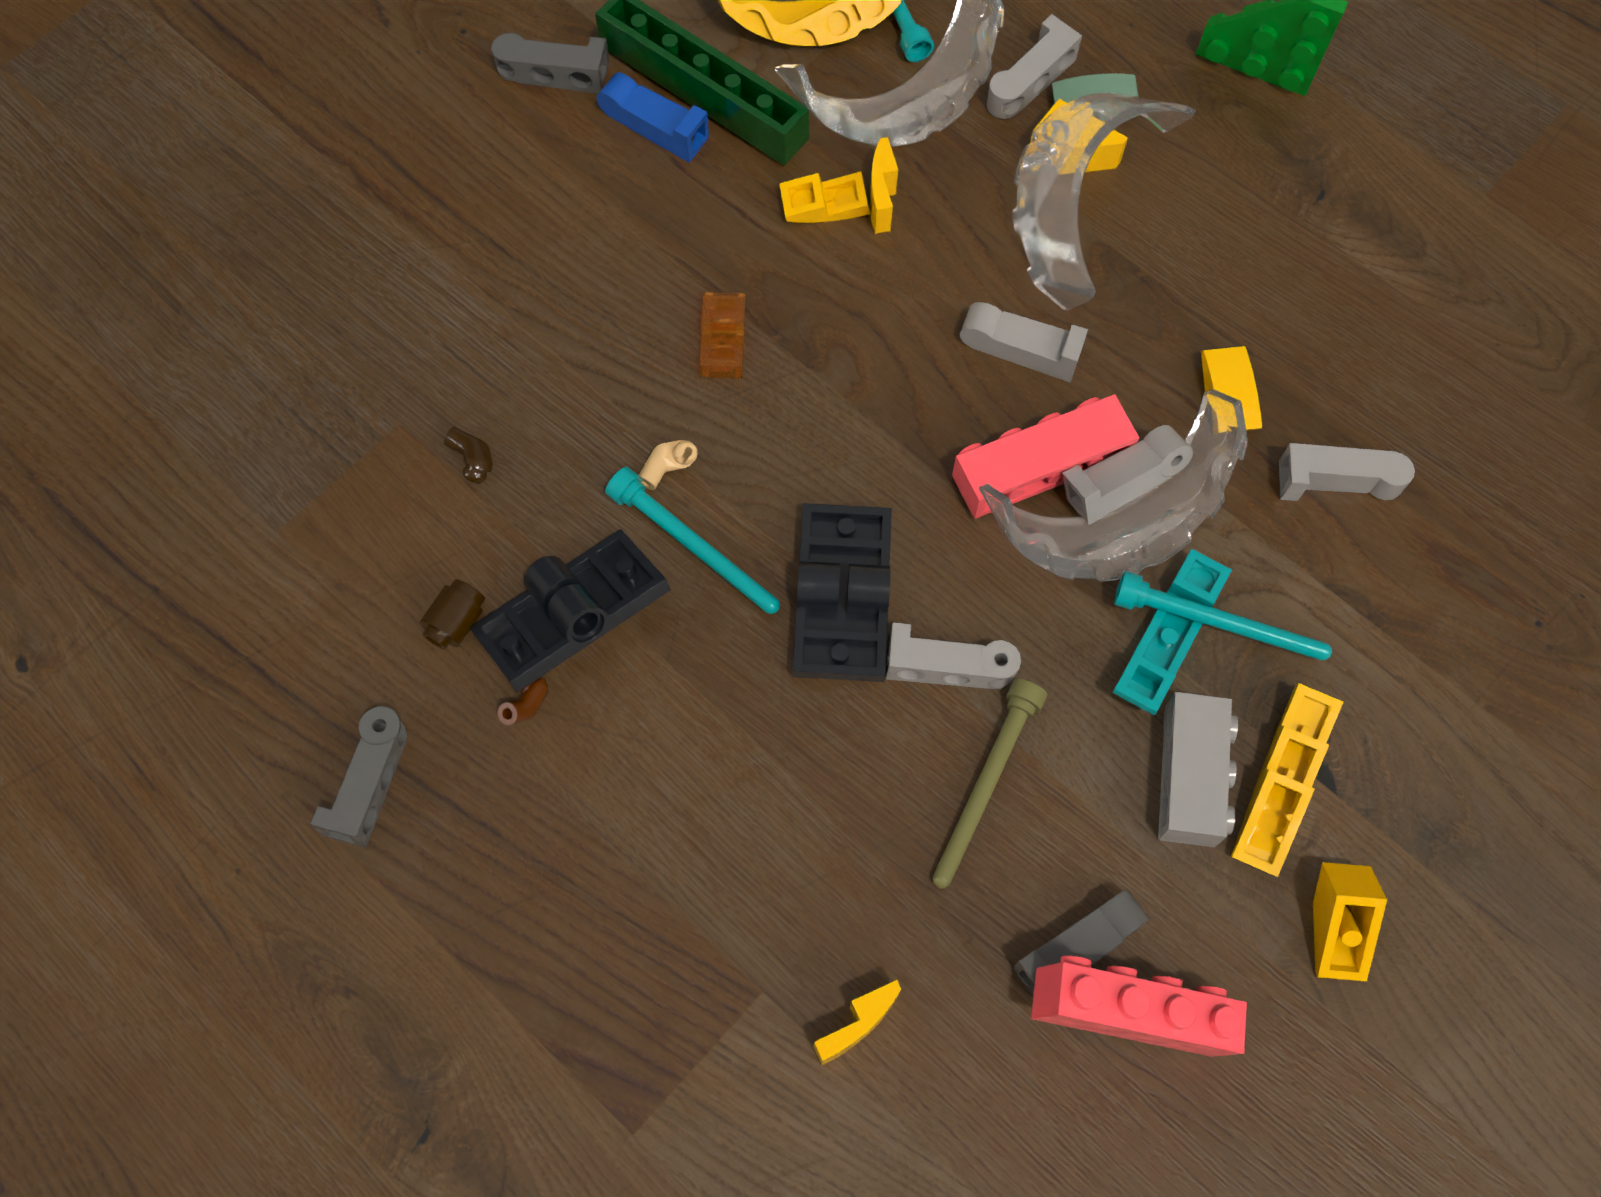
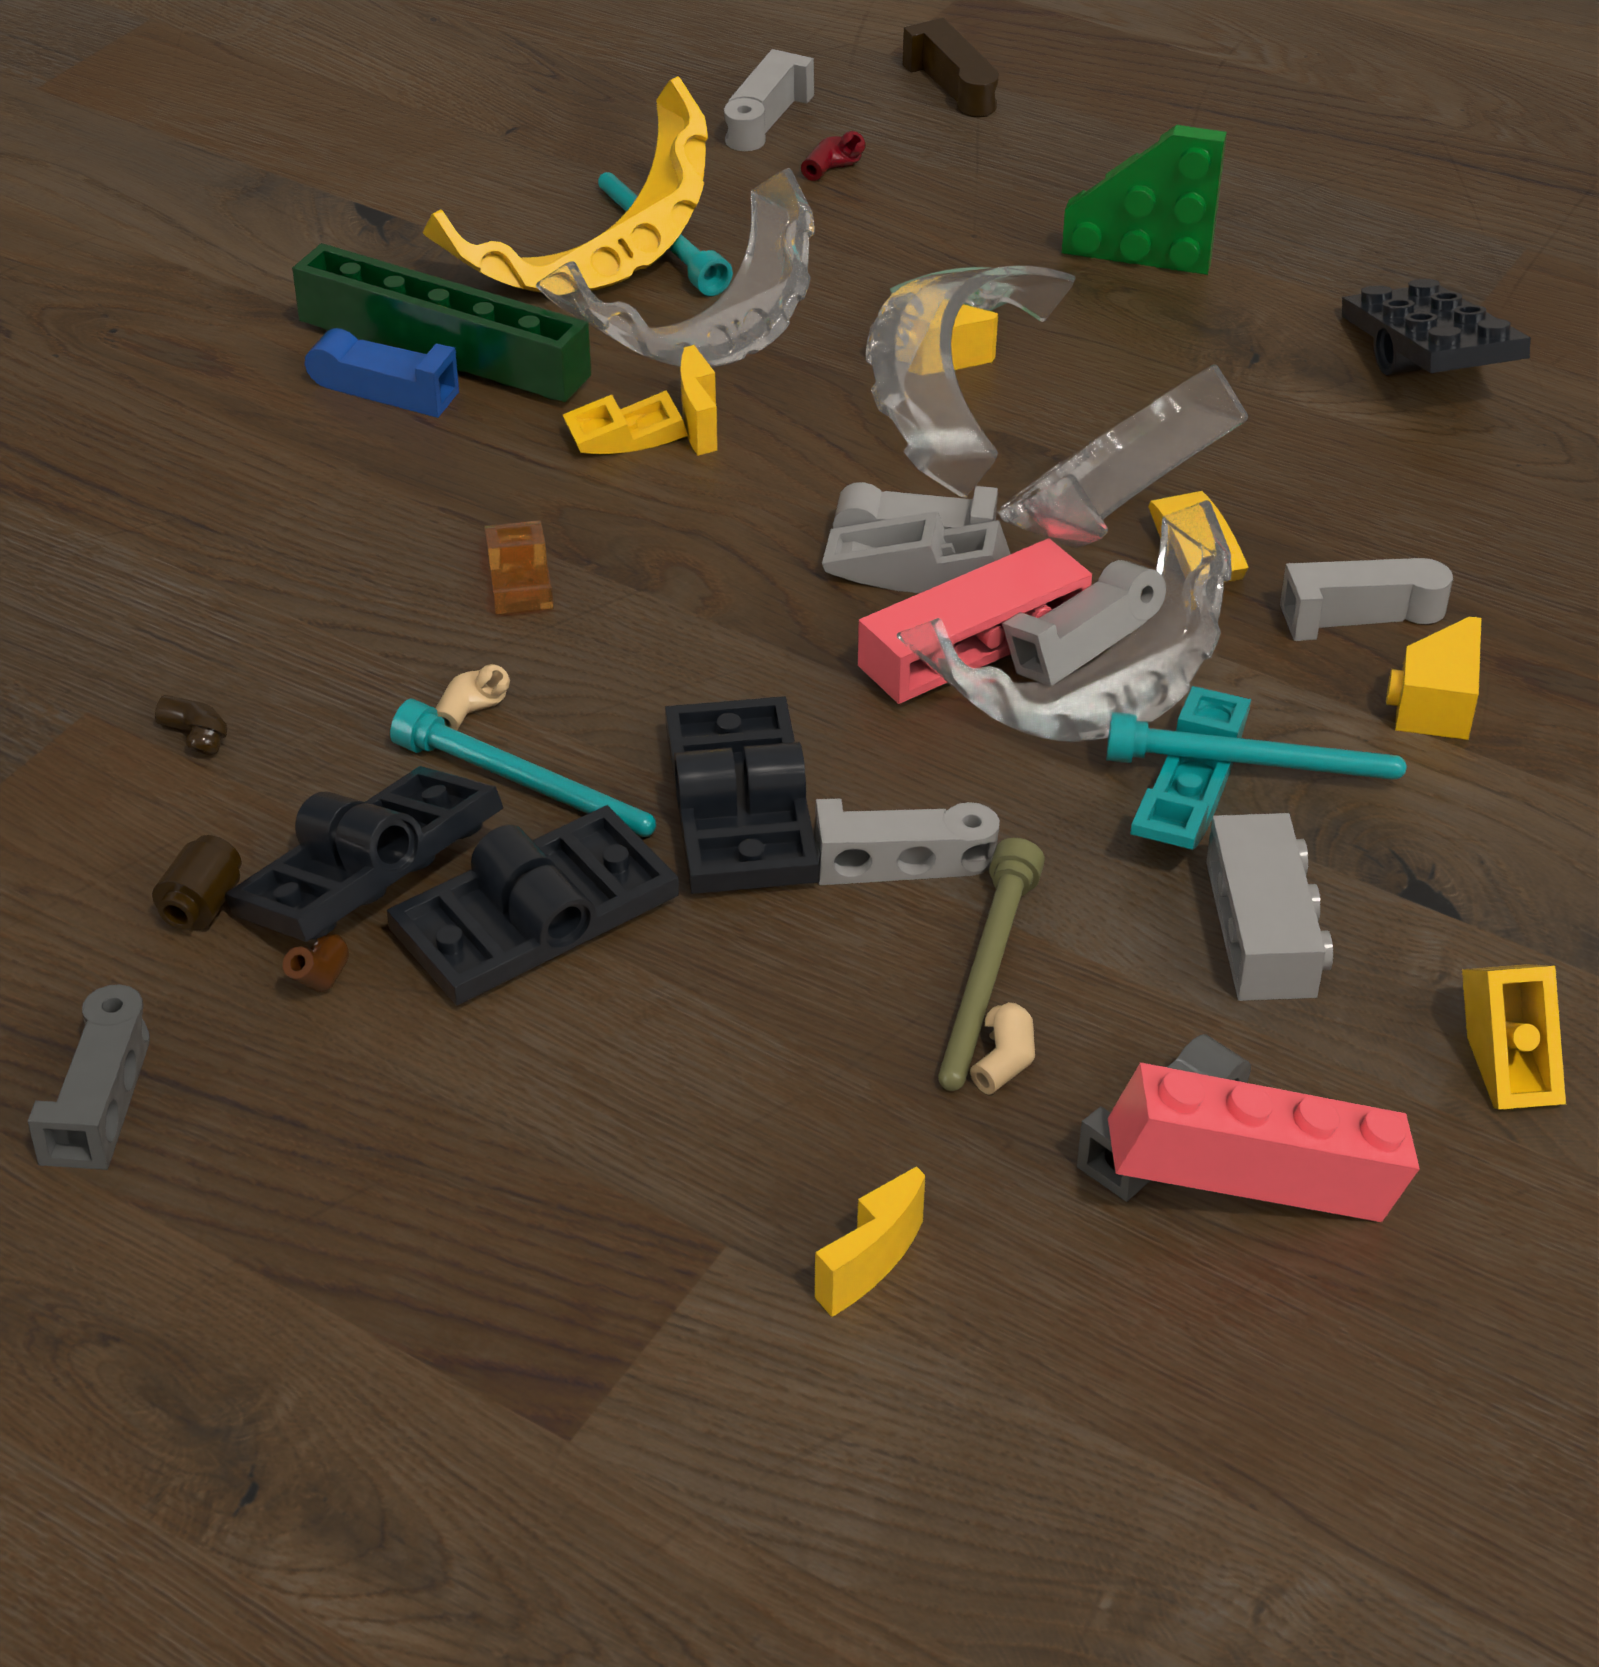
camera: 10 degrees left, 25 degrees down
(552, 63) = (237, 338): dark grey leg -> none
(680, 670) = (530, 901): none -> black plate
(990, 860) = (1013, 1050): none -> tan arm
(1015, 88) = (864, 279): light grey leg -> none
(1017, 375) = (911, 551): none -> light grey slope
(1163, 316) = (1124, 460): none -> clear windscreen
(1286, 780) = (1389, 903): yellow slope -> none
(1379, 574) = (1439, 682): none -> yellow slope
(1467, 203) = (1431, 329): none -> black plate

